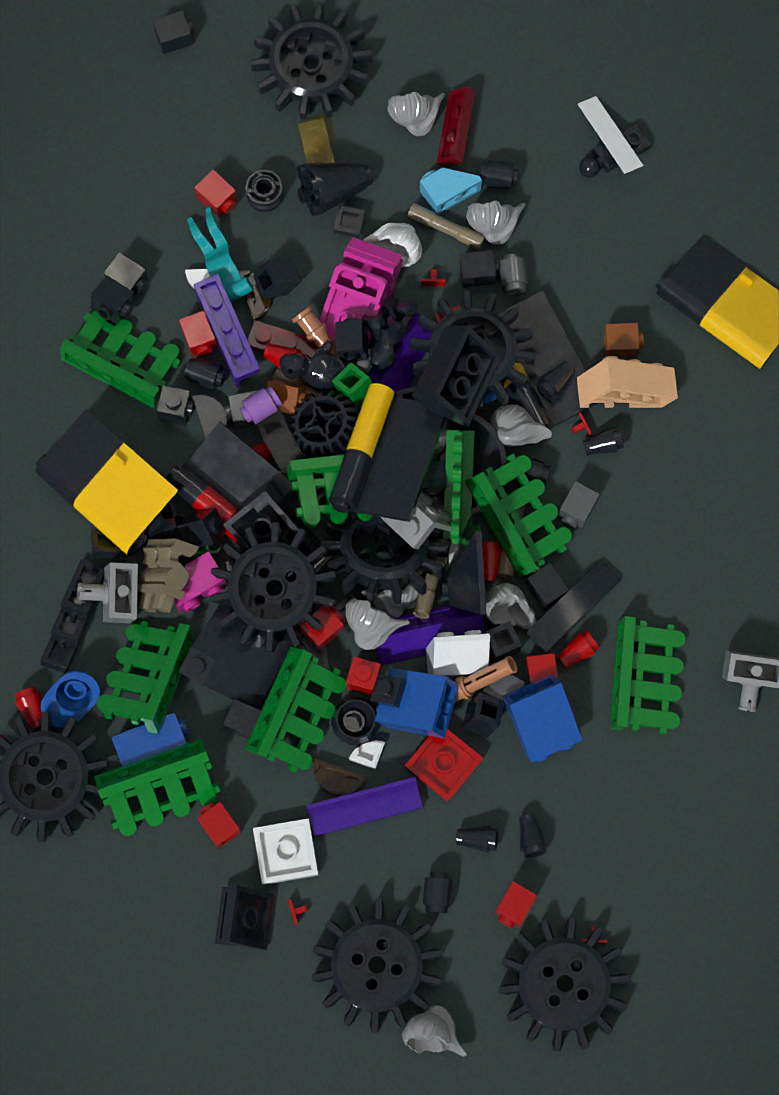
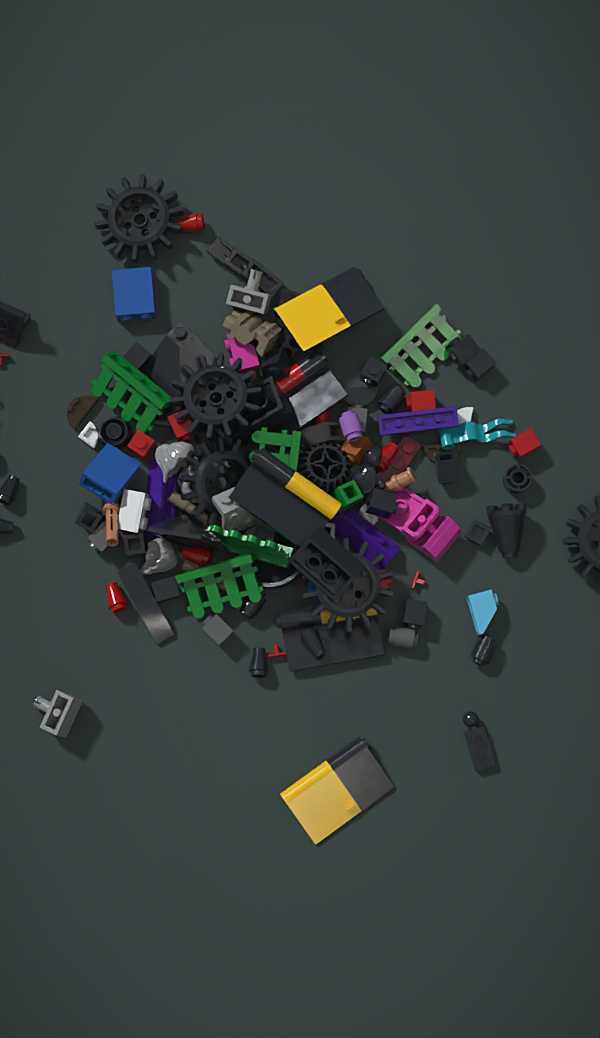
camera: 105 degrees right, 5 degrees up
(71, 697) = (187, 249): blue piece -> none
(152, 772) = (117, 287): green fence -> none
(158, 690) = (177, 309): green fence -> none
(218, 824) = (72, 322): red brick -> none
(285, 851) = (40, 361): white plate -> none
(315, 141) = (543, 526): clear yellow plate -> none
(364, 806) = (53, 422): dark purple panel -> none
(388, 690) = (123, 456): black plate -> none
(389, 329) = (383, 533): black animal -> none
(398, 239) = (452, 562): white hair -> none
(415, 111) = (547, 604): light grey hair -> none
(433, 220) = (463, 591): dark tan piece -> none
(444, 764) = (63, 482): red plate -> none
(455, 126) = (529, 630): dark red plate -> none
(494, 220) = (447, 636): light grey hair -> none
(517, 427) = (285, 601): light grey hair -> none
(540, 667) = (105, 567): red brick -> none
(542, 718) = (72, 555): blue brick -> none
(610, 135) = (490, 741): white sticker -> none
(622, 340) = (330, 700): dark orange brick -> none
(625, 687) = (96, 628): green fence -> none
(627, 382) = (293, 691): light nougat wedge -> none

